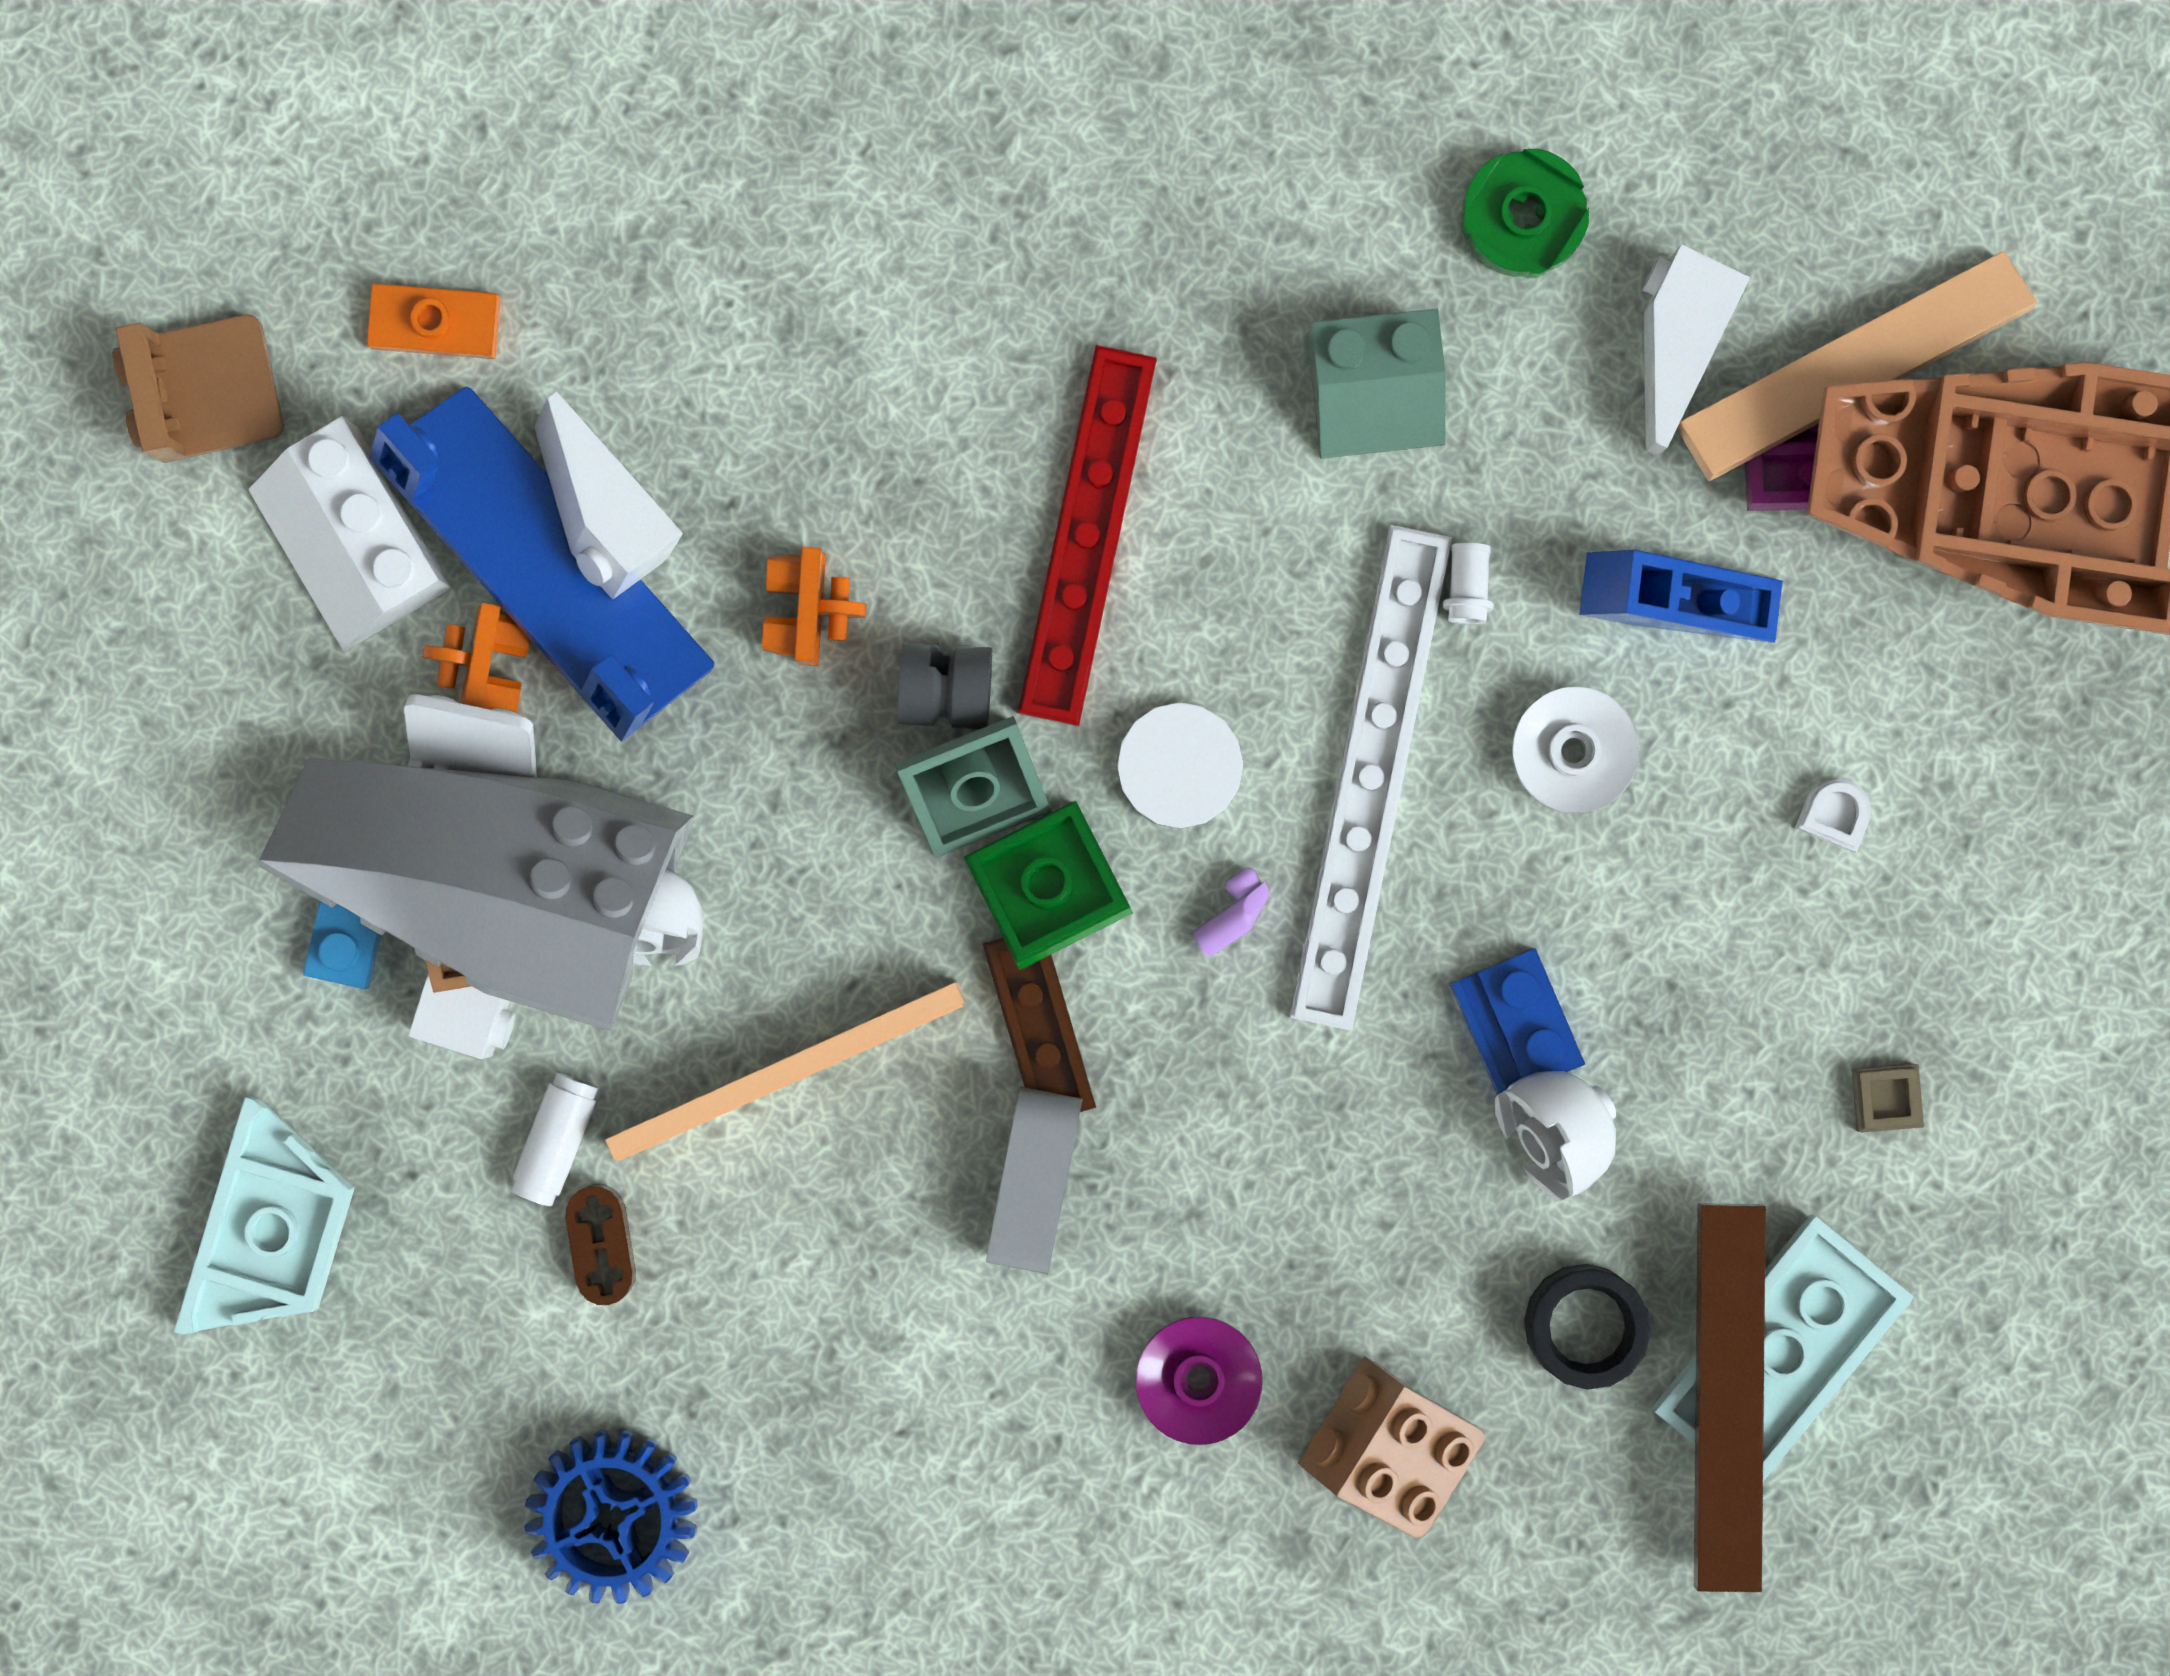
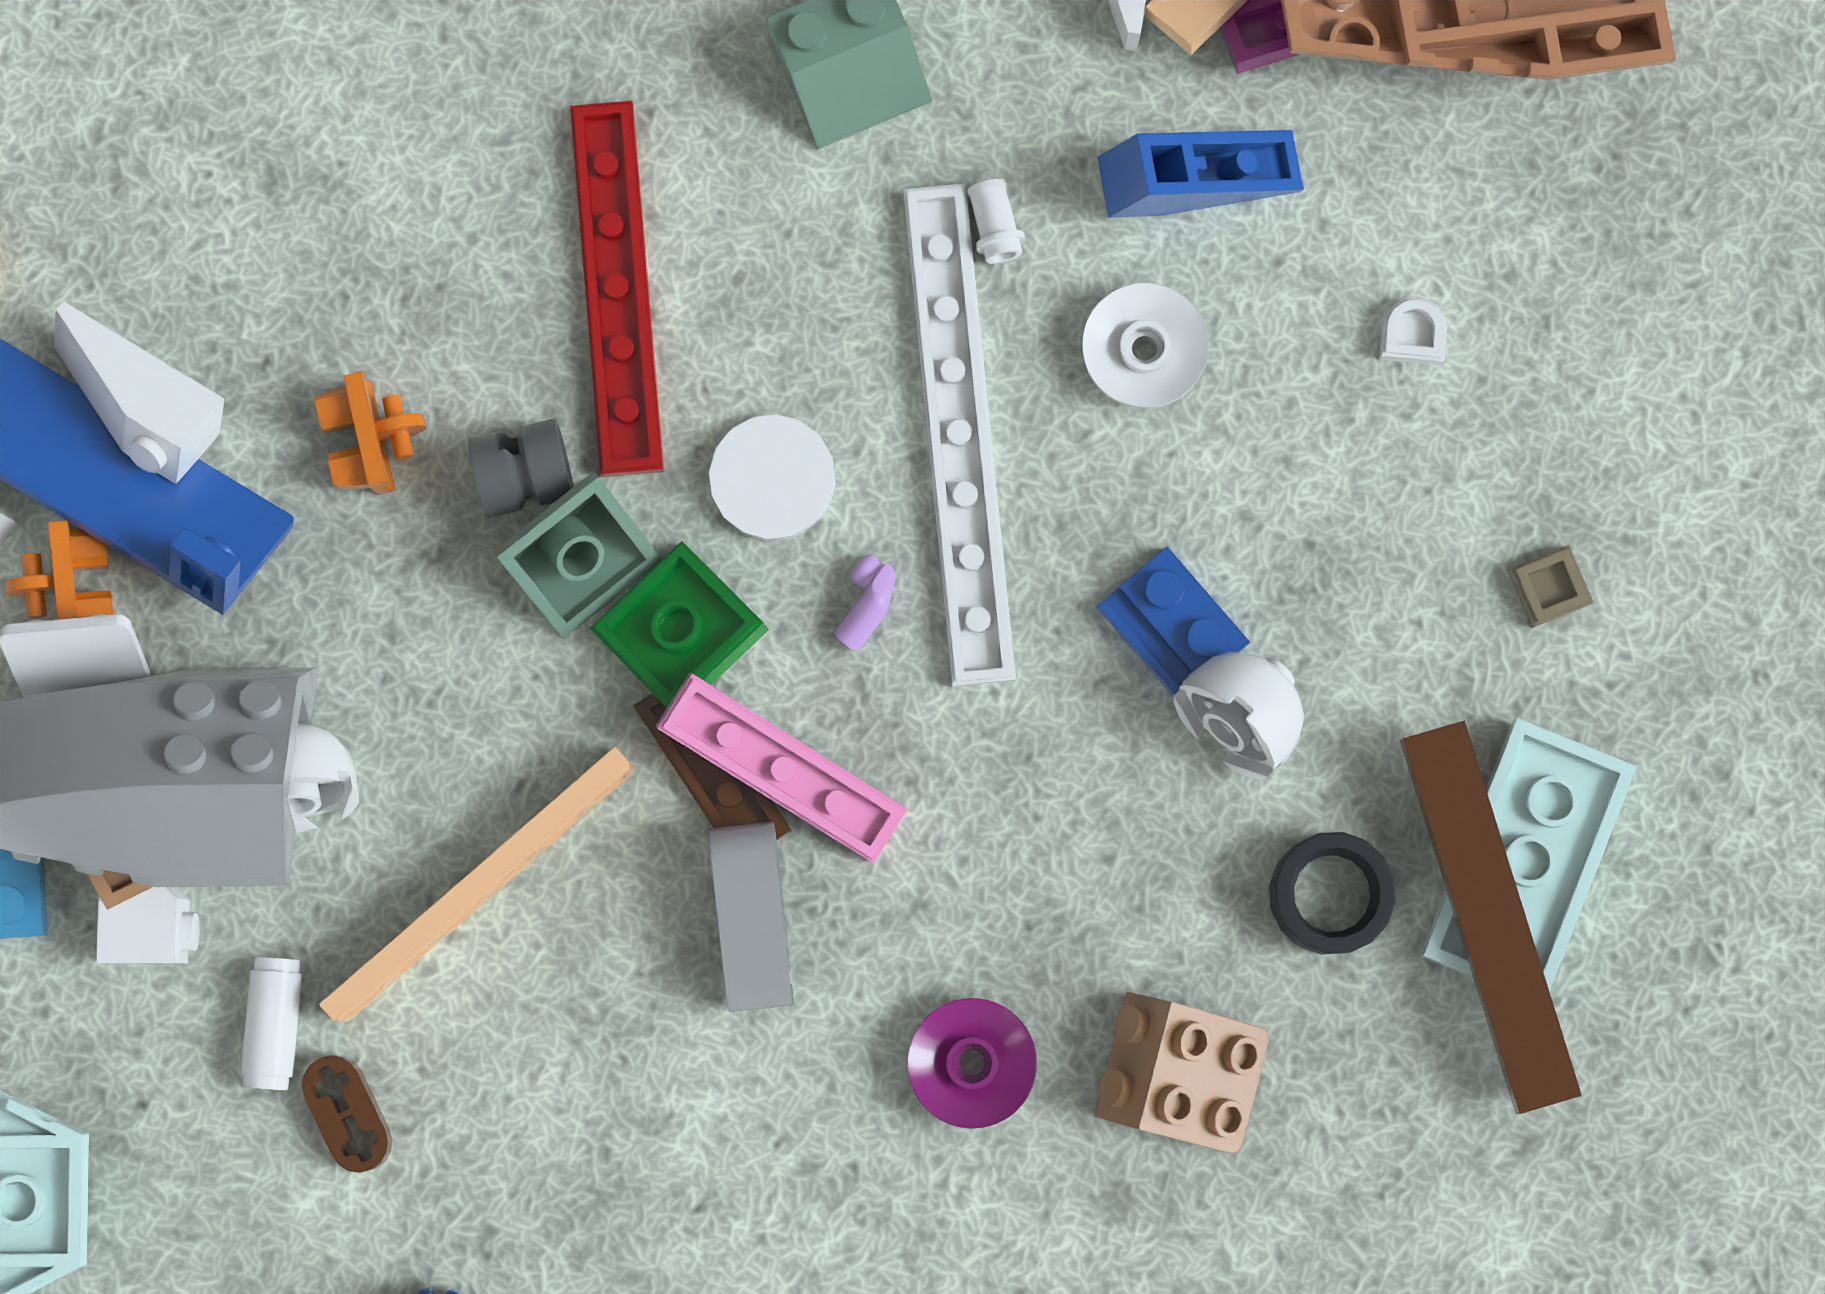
camera: 20 degrees left, 5 degrees down
(1104, 1048) = (781, 767): none -> bright pink tile

